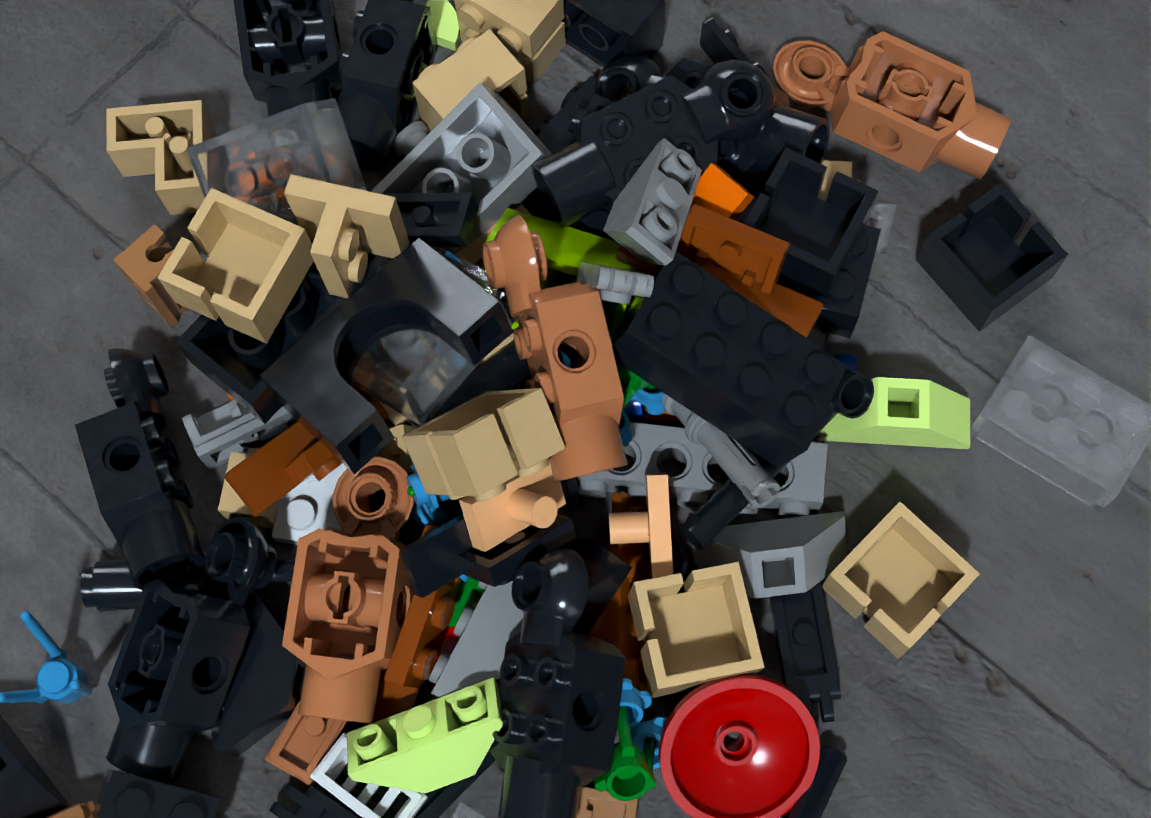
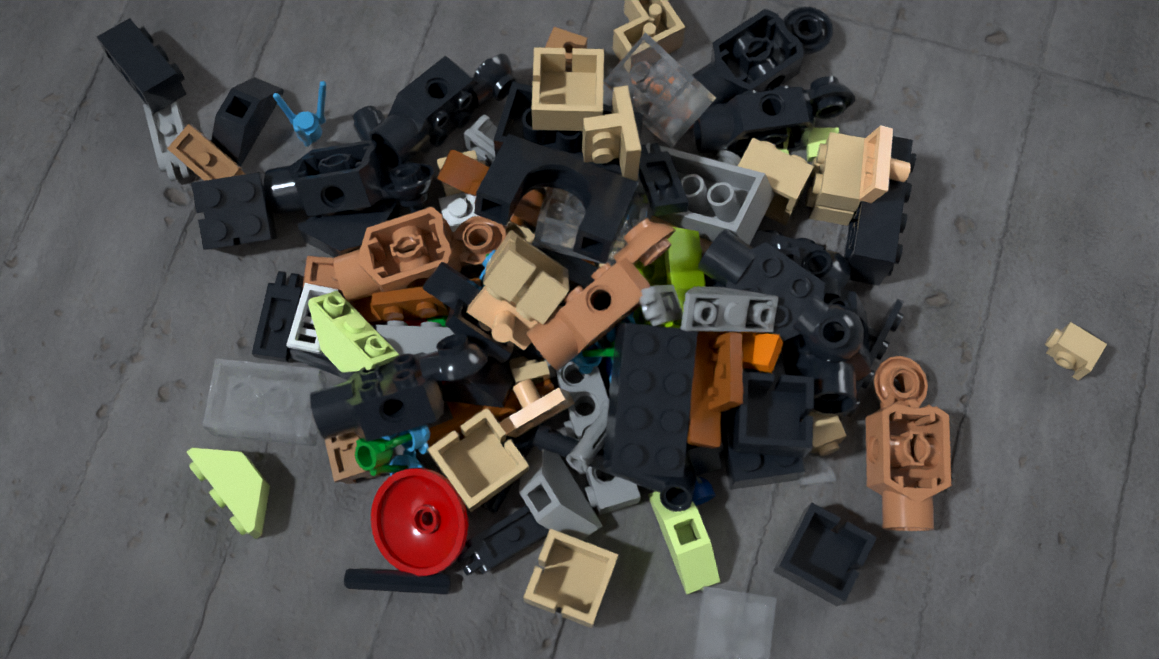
camera: 60 degrees right, 0 degrees up
(592, 513) = (529, 369): none -> tan bracket

